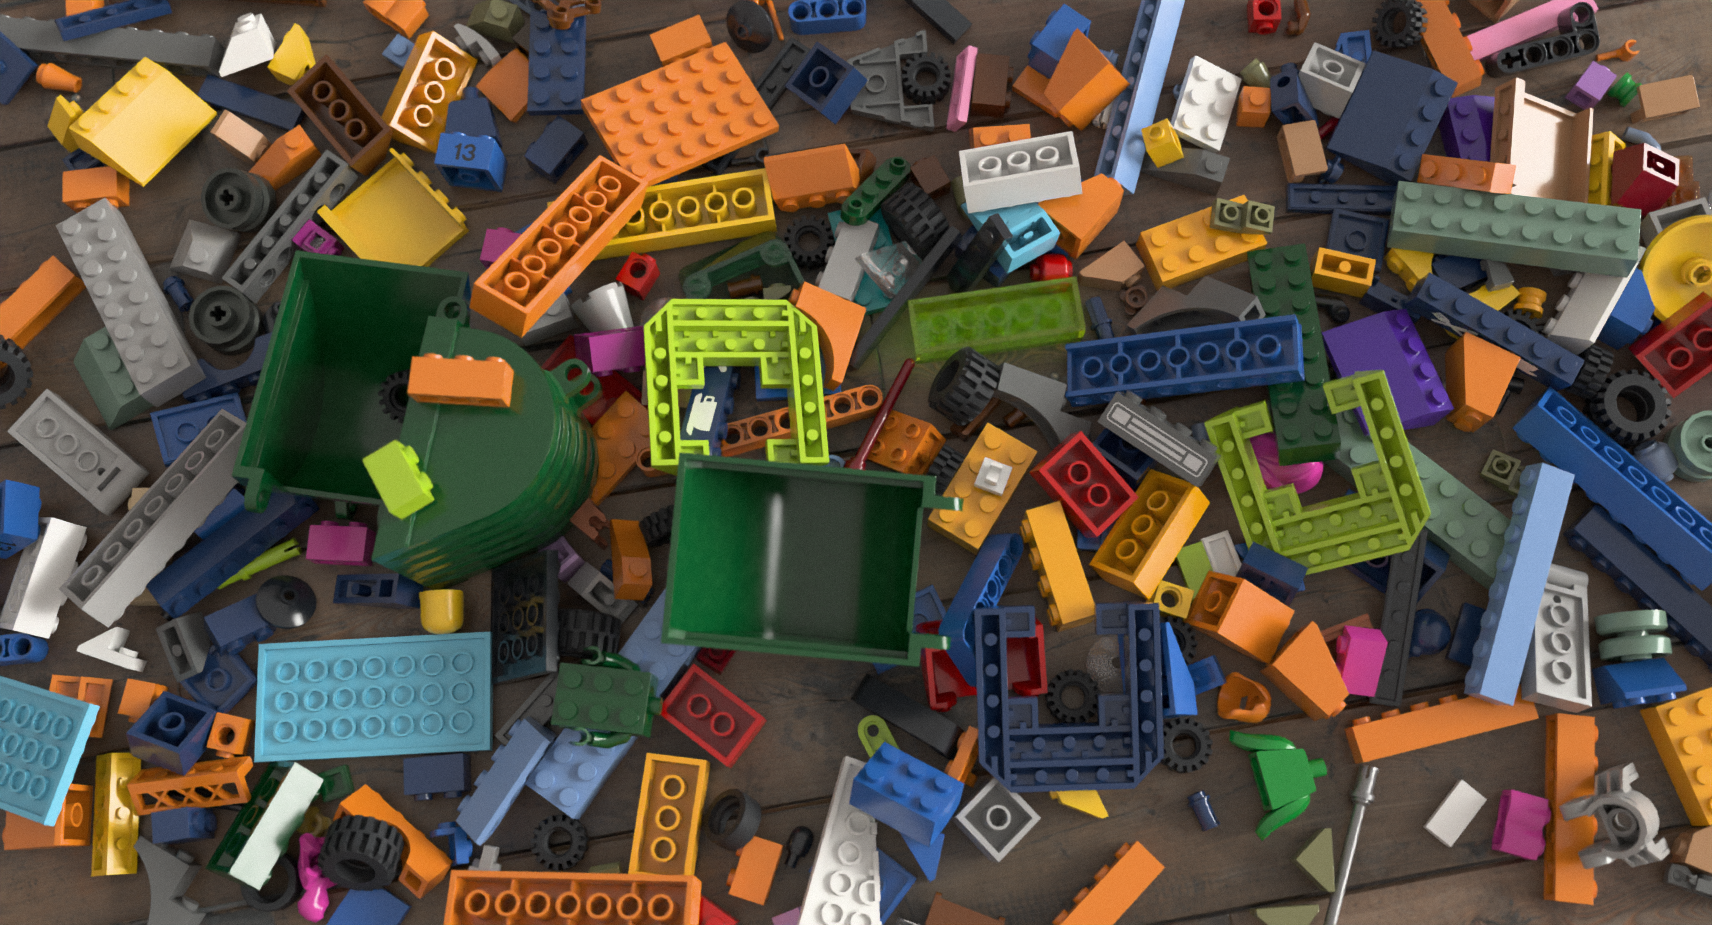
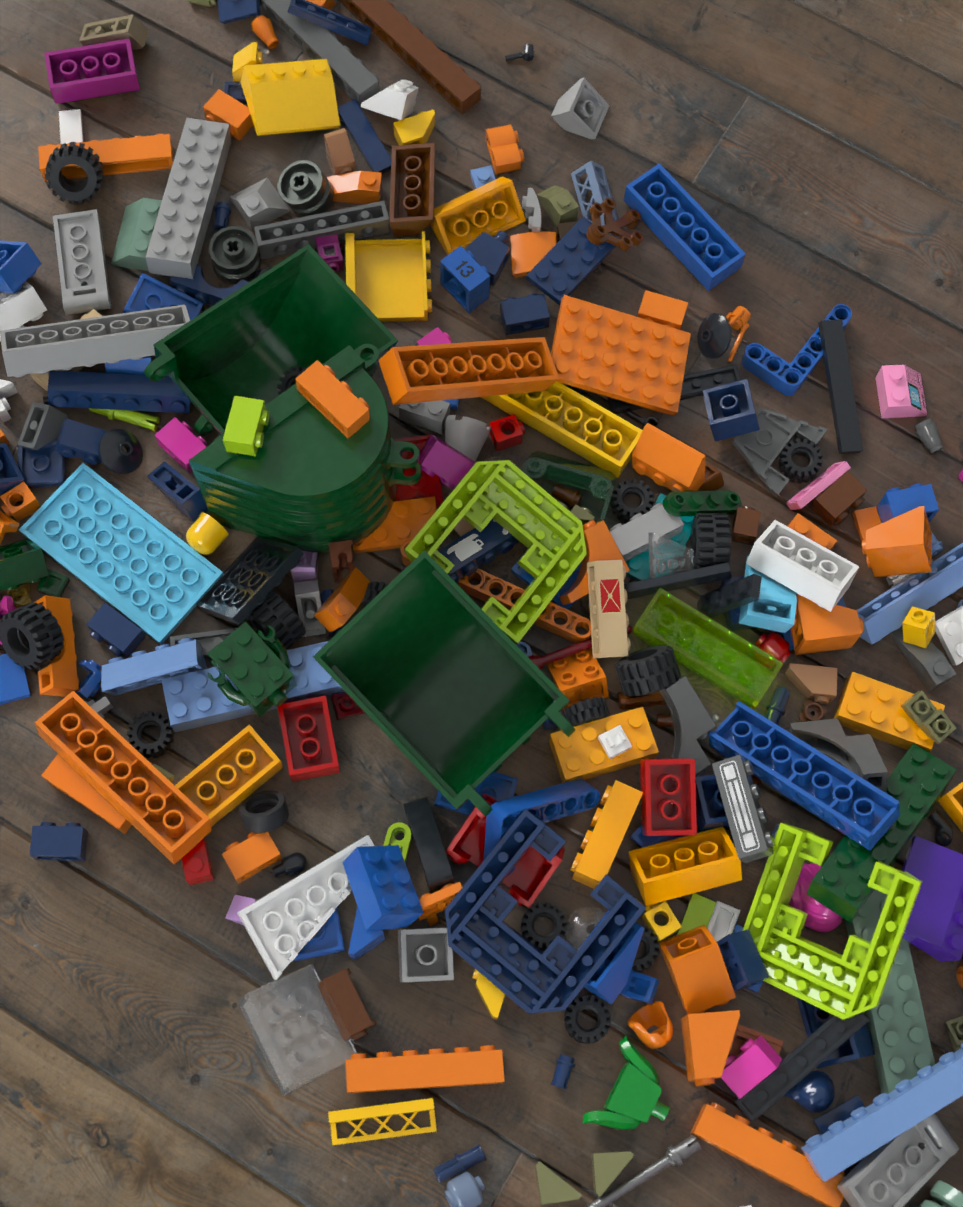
camera: 30 degrees right, 5 degrees down
(880, 360) = (607, 608): none -> tan brick

